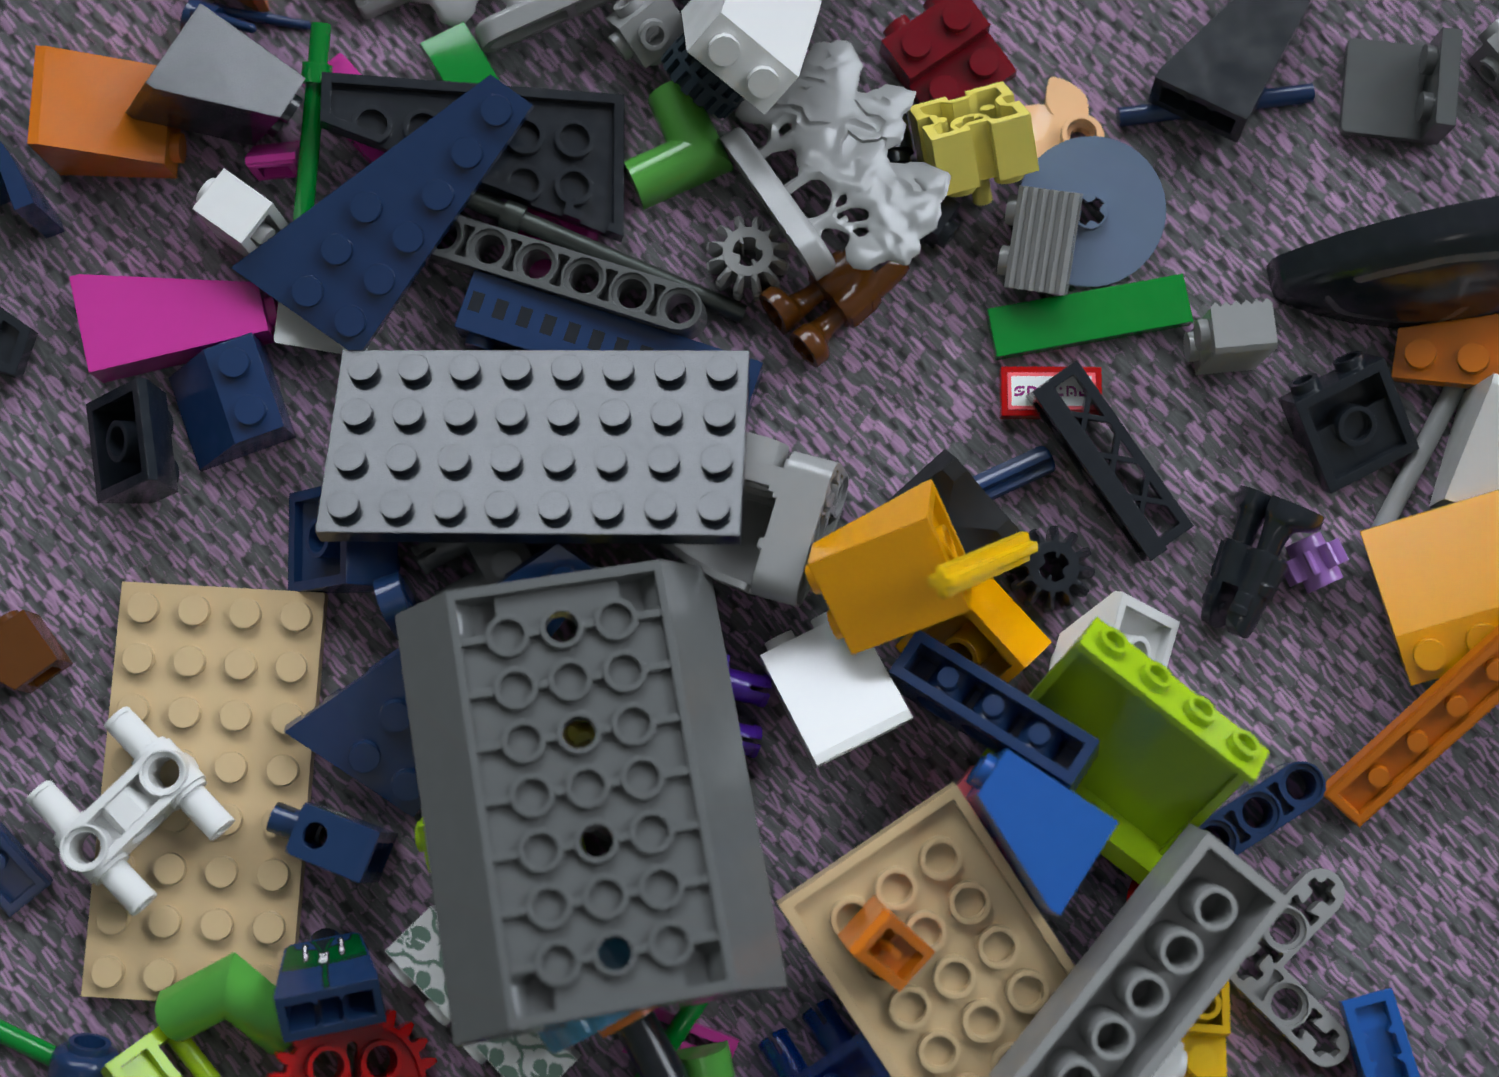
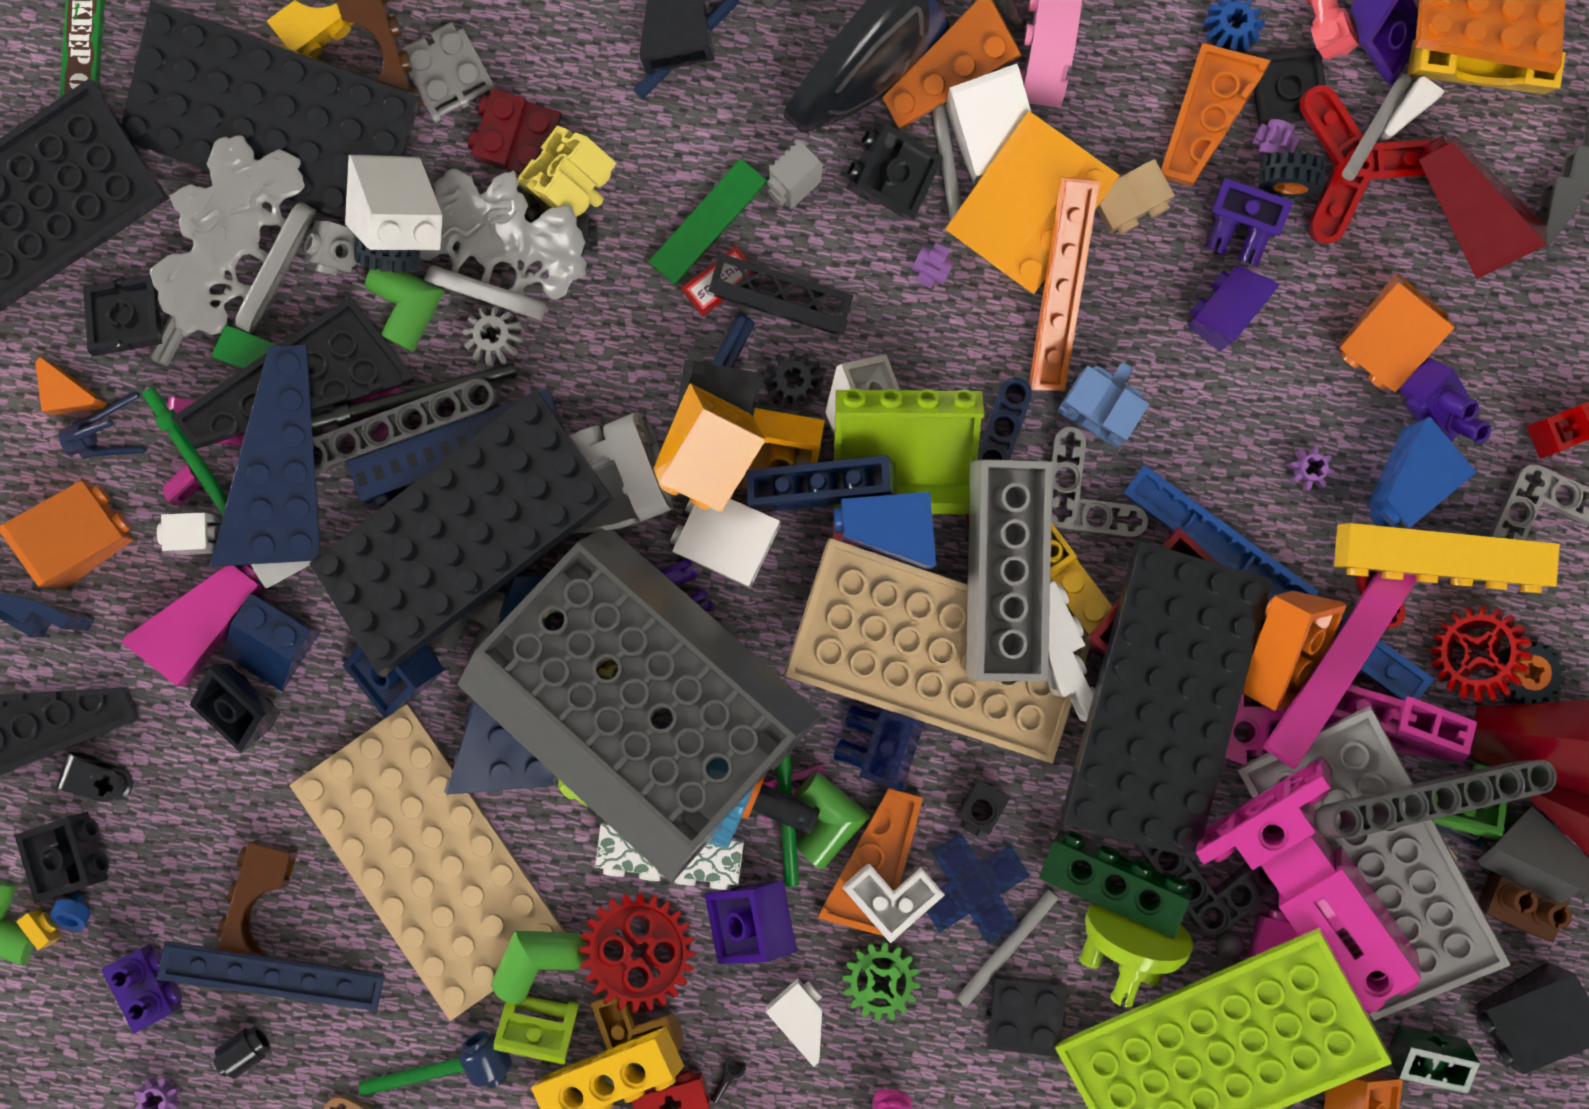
camera: 40 degrees left, 5 degrees up
(129, 811) = (396, 902): white piece -> none
(219, 84) = (117, 469): slope -> none
(327, 986) = (579, 908): dark blue torso -> none
(352, 845) = (533, 828): dark blue torso -> none
(393, 597) = (448, 677): dark blue beam -> none
(852, 297) = (570, 315): reddish brown piece -> none
(885, 944) = (858, 651): orange slope -> none
(982, 564) = (753, 409): yellow axle -> none
(1041, 239) = (648, 200): light grey brick -> none
(1061, 115) = (604, 125): light nougat plate -> none
(1130, 207) = (683, 142): sand blue piece -> none
(1250, 576) = (904, 300): black piece -> none
(1395, 880) = (1102, 405): none -> medium blue brick

